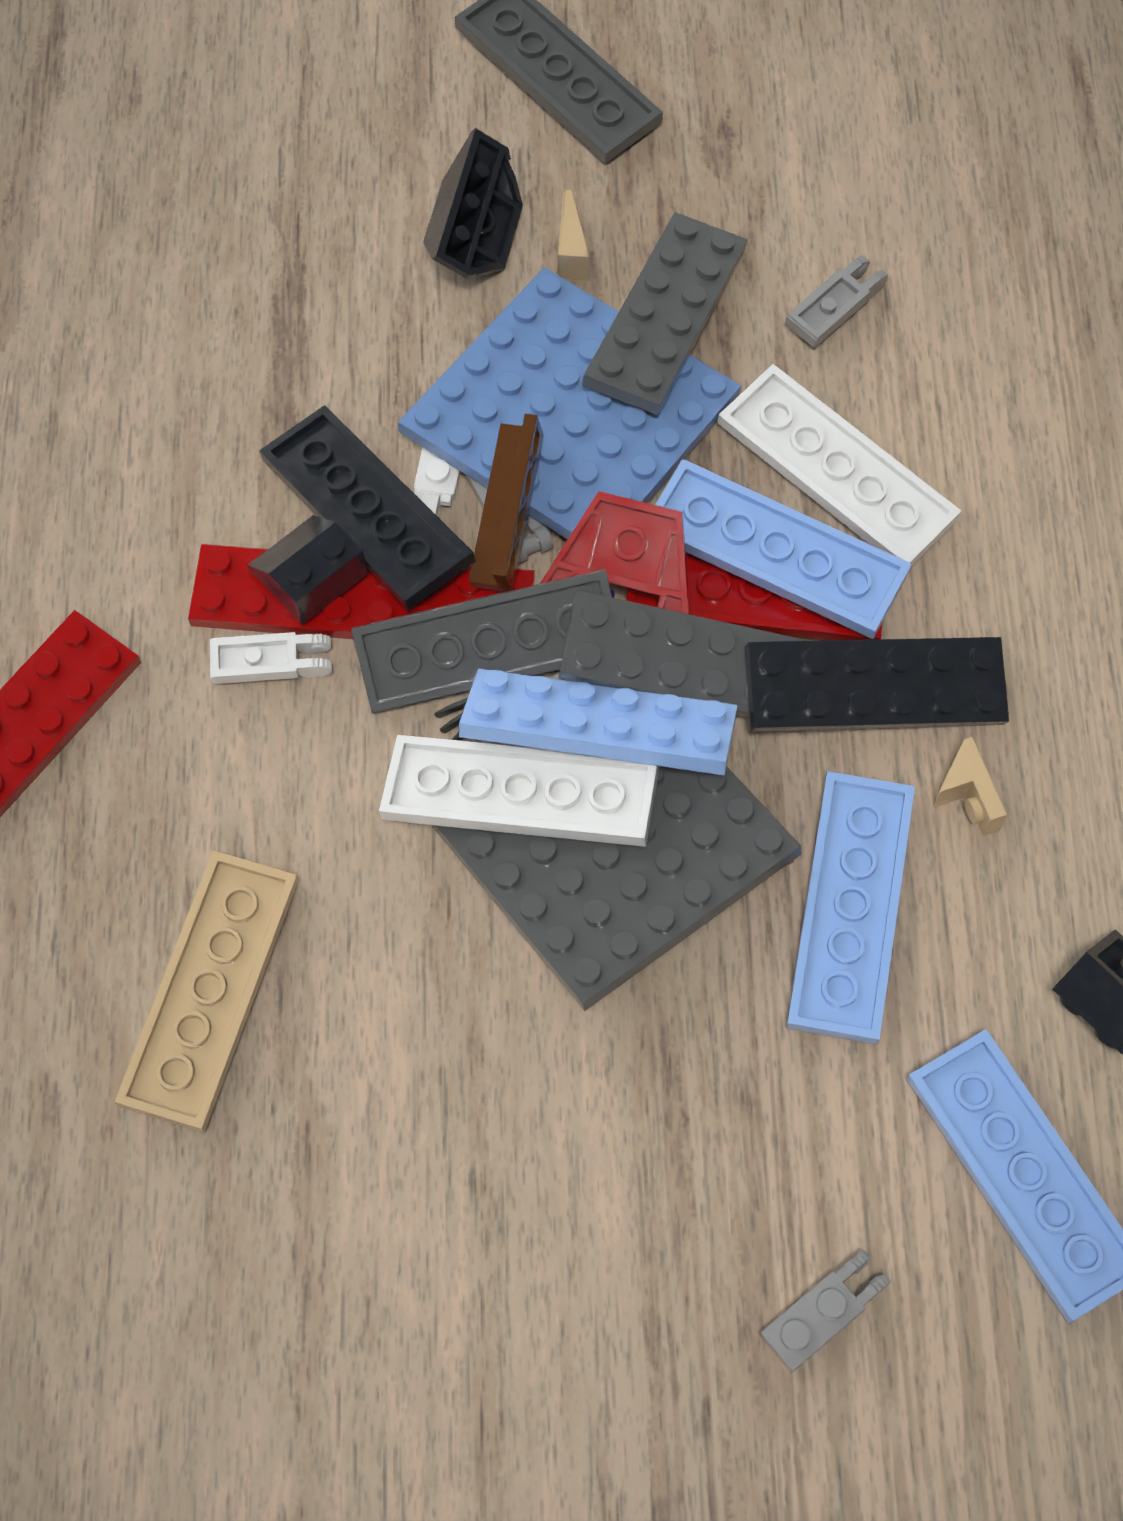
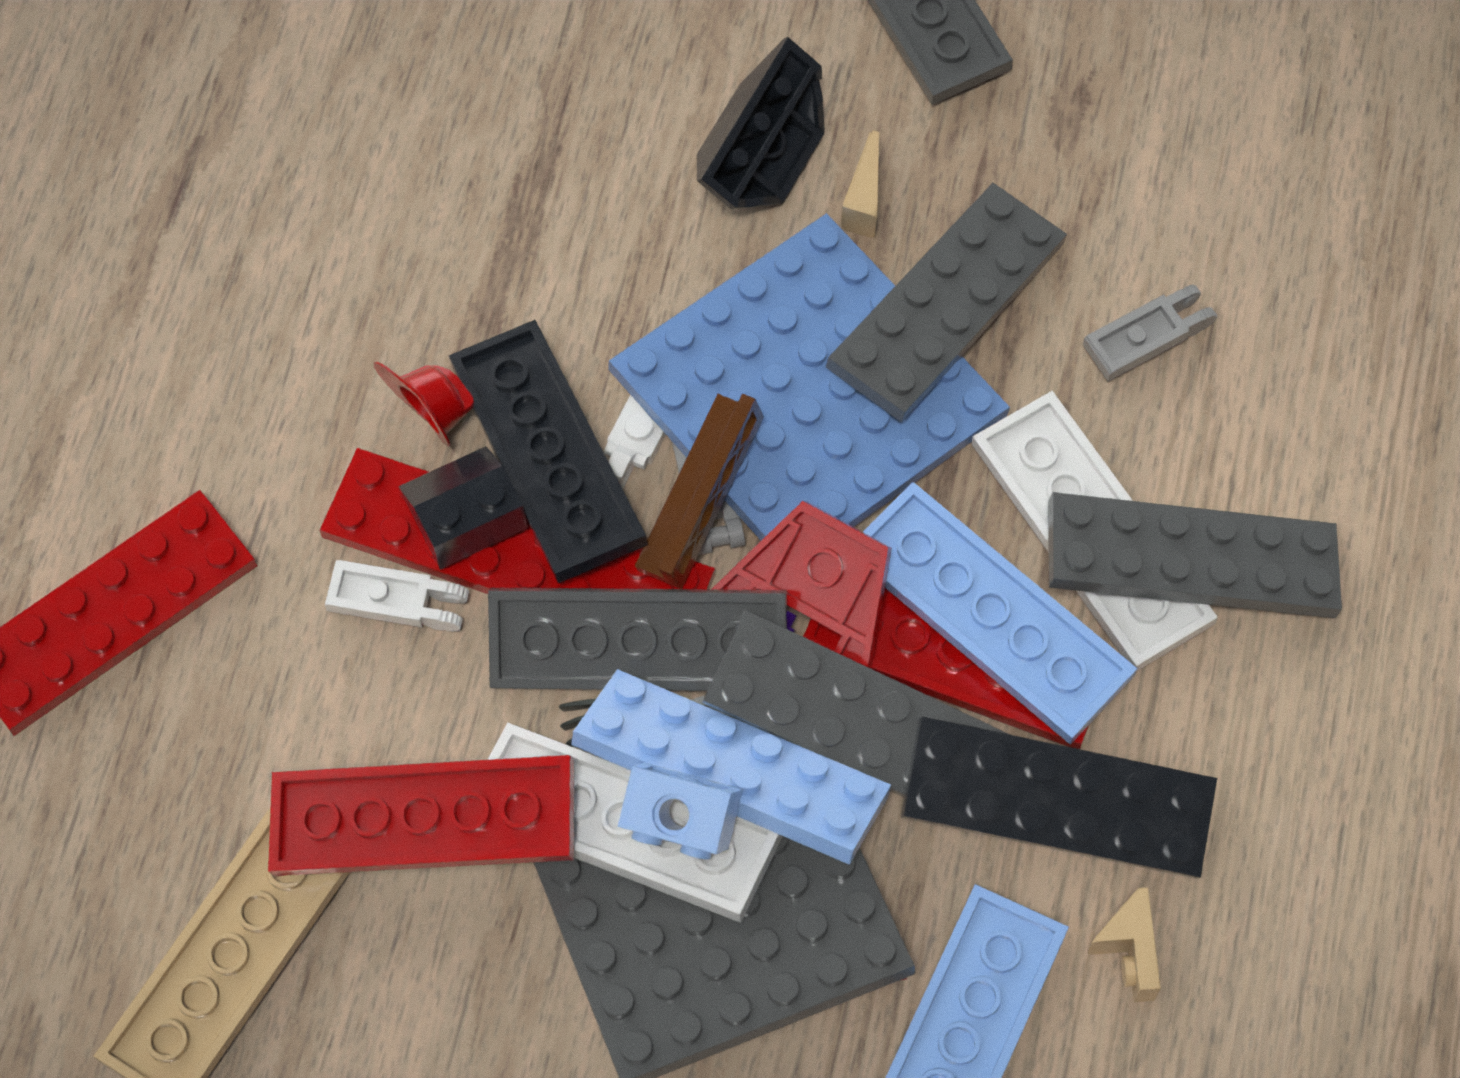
camera: 15 degrees right, 0 degrees up
(252, 485) = (433, 394): none -> red piece
(347, 826) = (422, 815): none -> red plate
(542, 758) = (709, 803): none -> light blue brick
(927, 466) = (1193, 555): none -> dark grey plate

